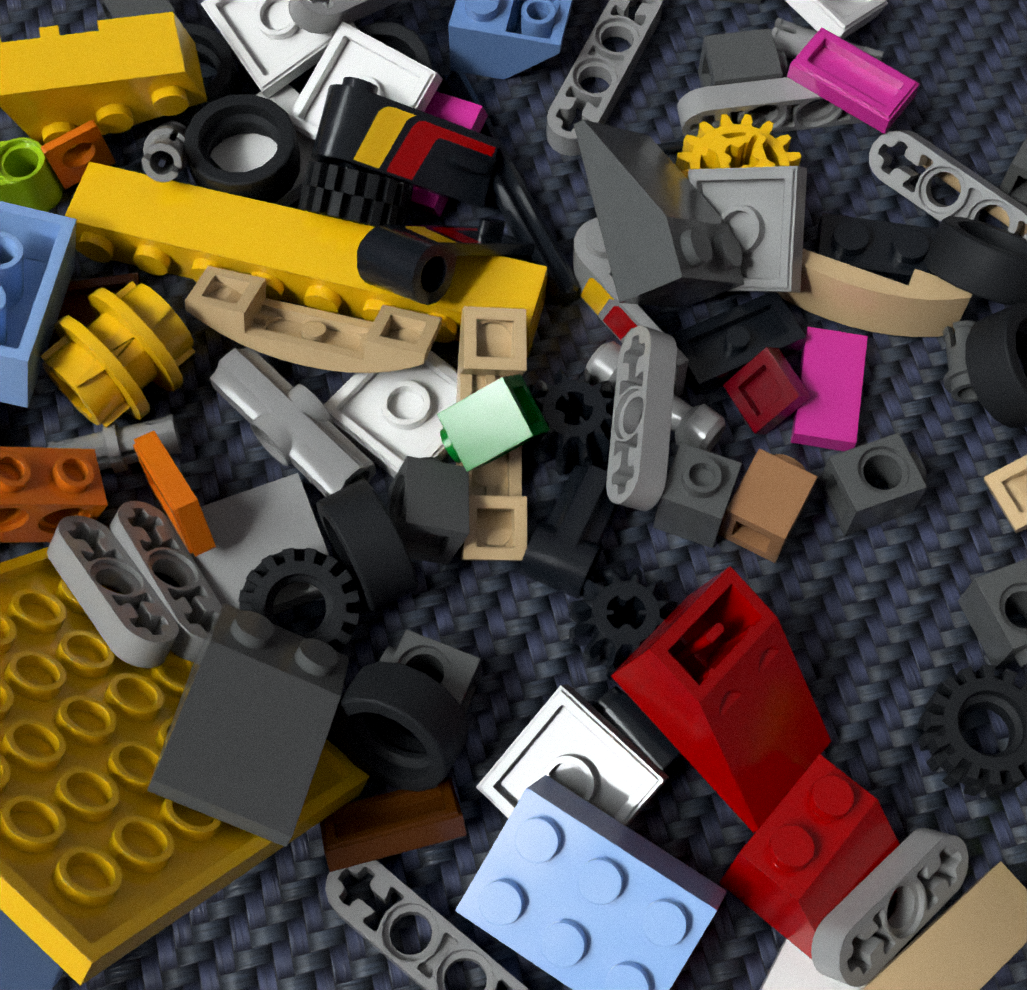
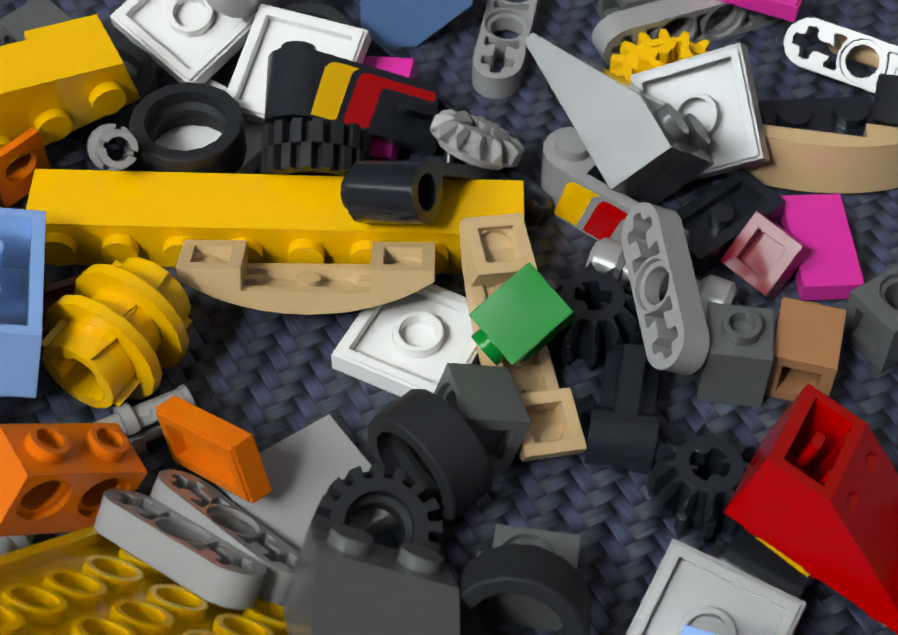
camera: 15 degrees left, 15 degrees down
(290, 422) = (305, 369): light grey piece -> none
(515, 211) = (476, 140): none -> light grey gear

